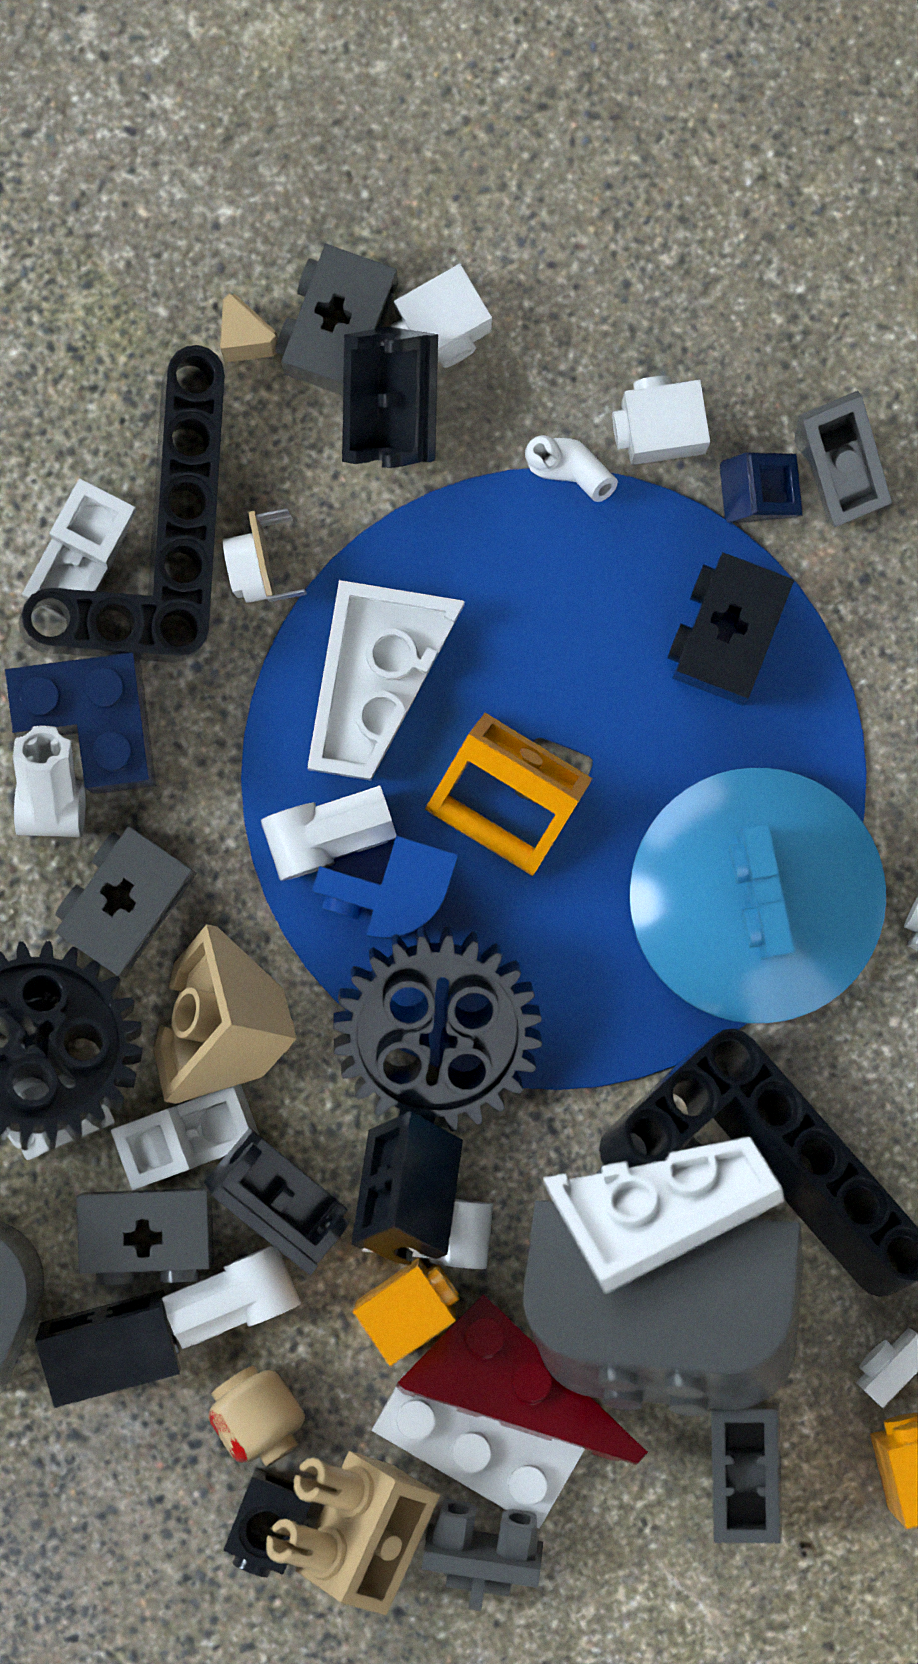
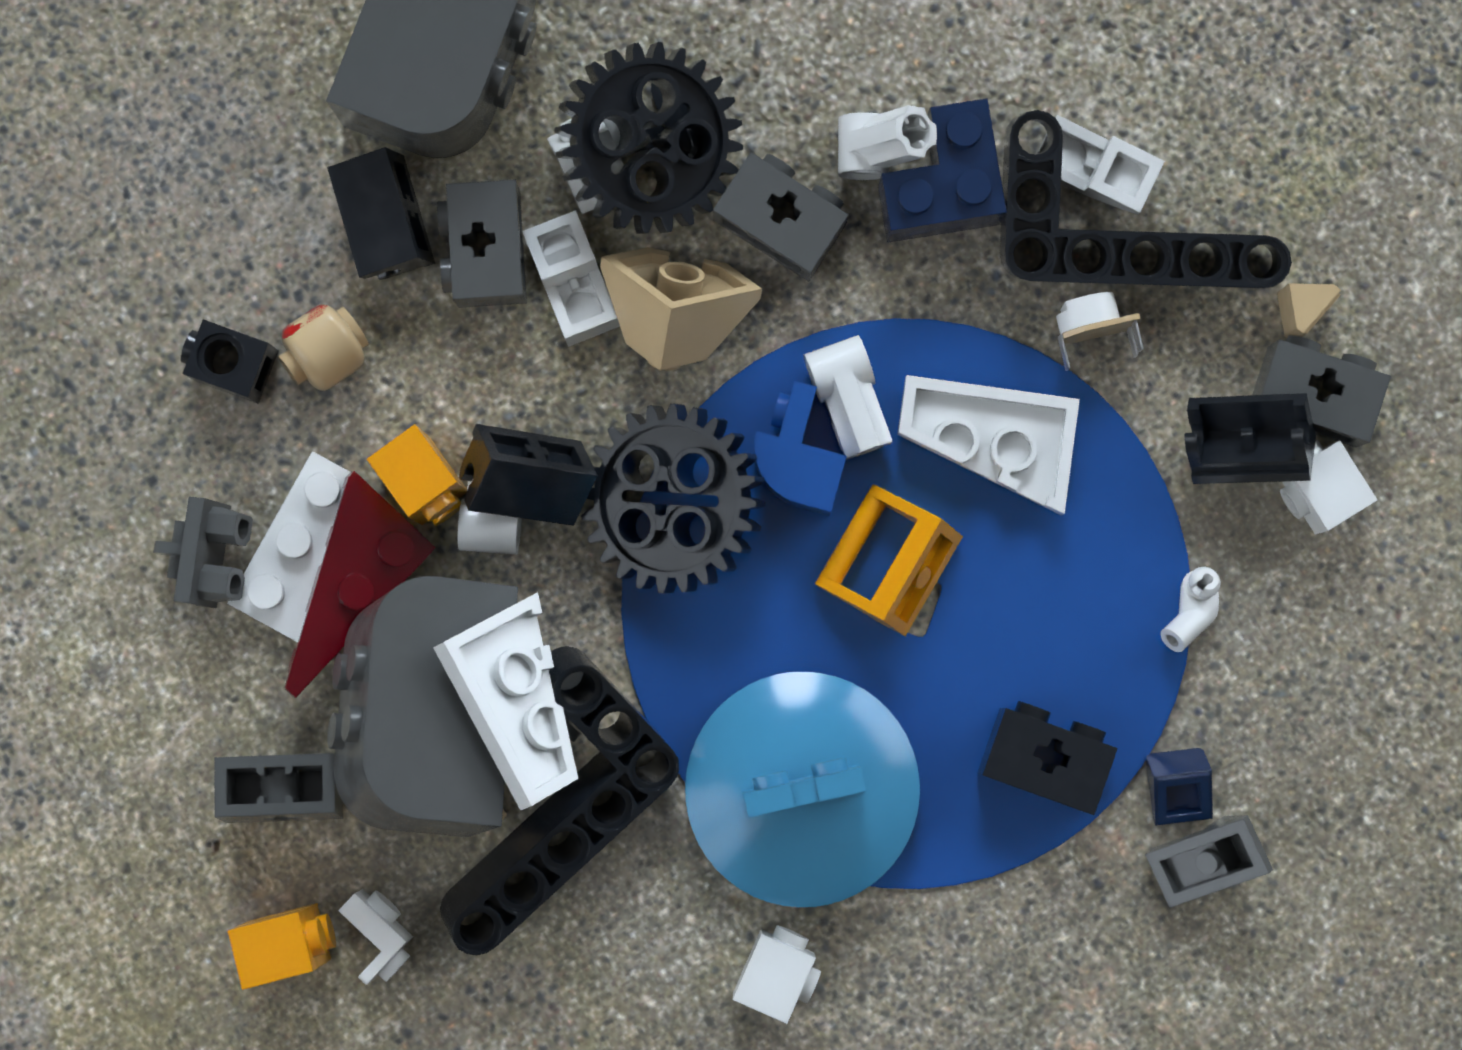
camera: 90 degrees right, 0 degrees up
(246, 1292) = (432, 334): white piece -> none
(278, 1201) = (514, 360): black hinge -> none
(363, 1533) = (220, 444): tan brick -> none
(662, 420) = (1238, 691): white brick -> none

